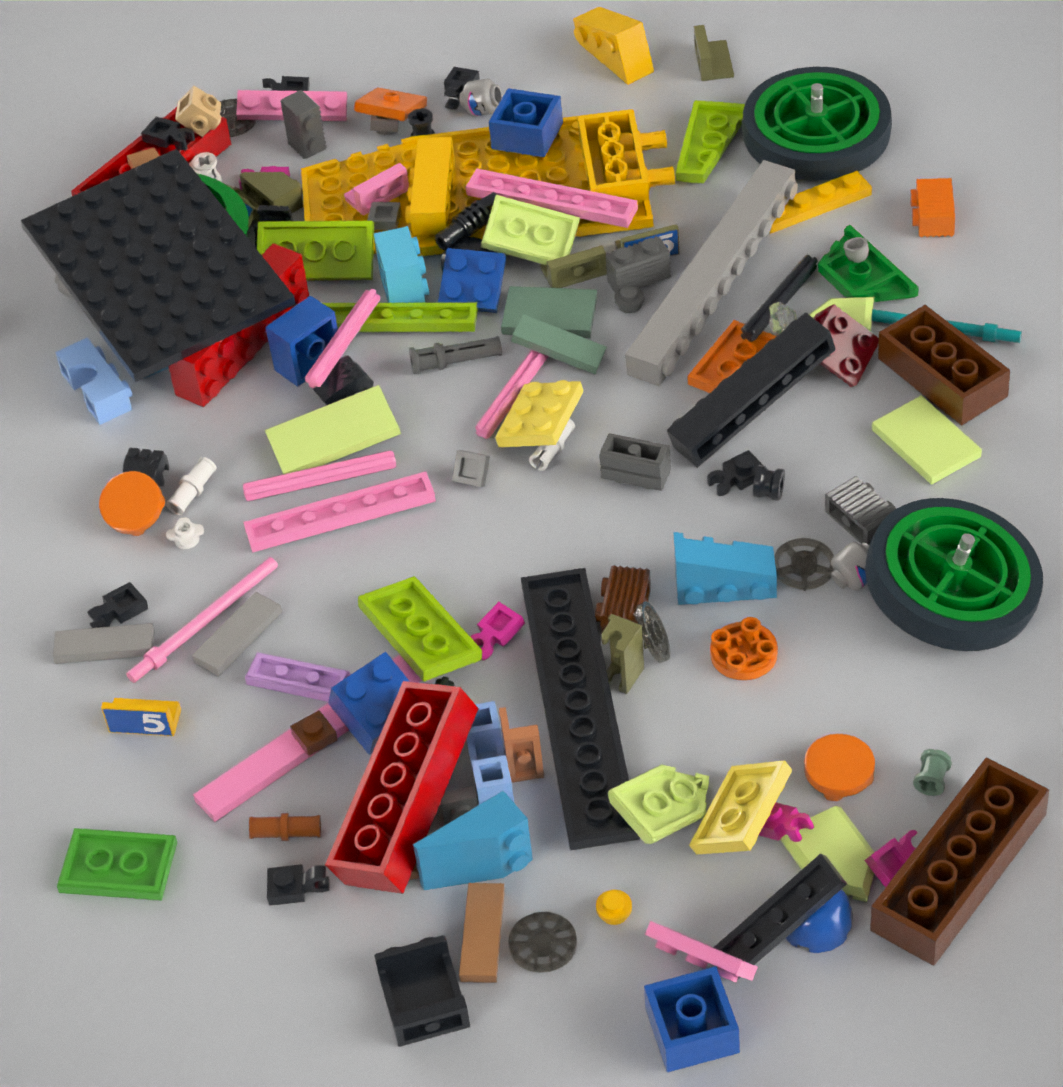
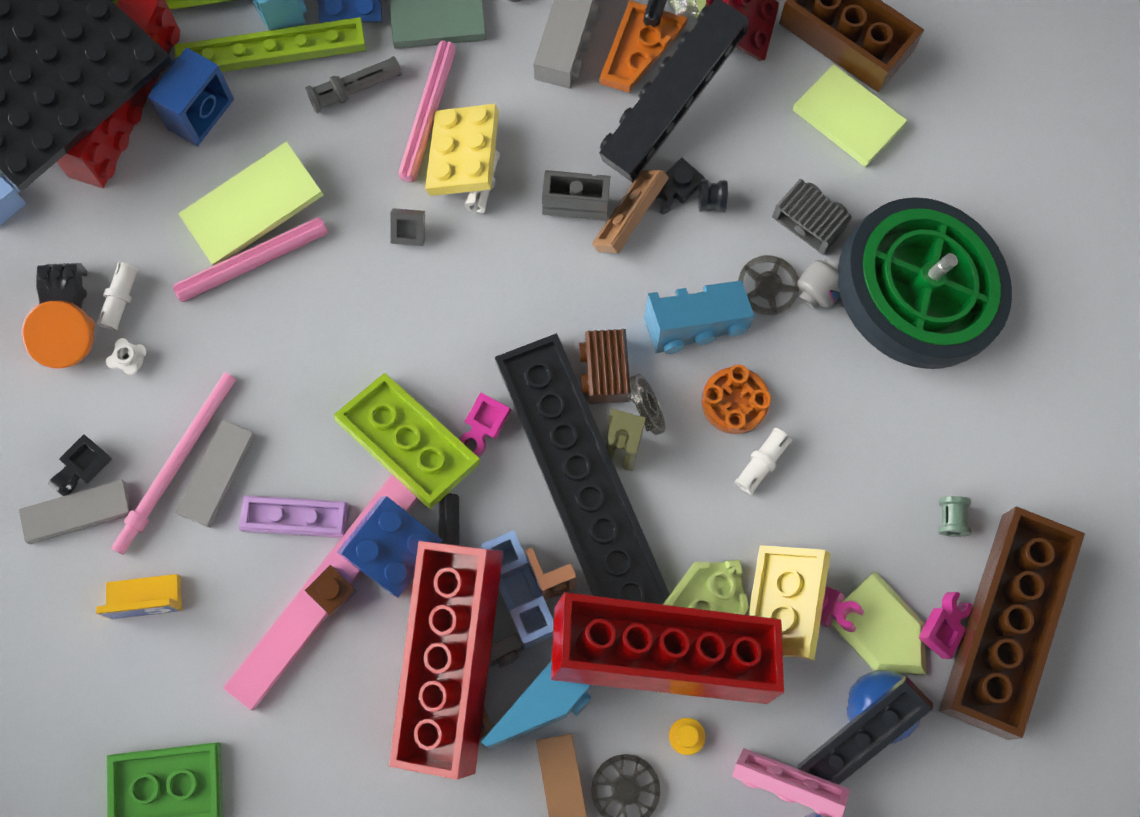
camera: 20 degrees left, 25 degrees up
(285, 826) = (329, 709): dark orange pin -> none
(291, 883) = (353, 775): black plate -> none
(339, 511) = (283, 303): bright pink plate -> none
(342, 338) = (232, 90): bright pink axle -> none
(343, 381) = (244, 139): black hand -> none
(558, 344) = (459, 57): sand green tile -> none
(606, 800) = (667, 649): none -> red brick
(684, 484) = (630, 211): none -> medium nougat tile
(754, 699) = (763, 461): none -> white pin
(839, 766) = (864, 524): orange tile -> none

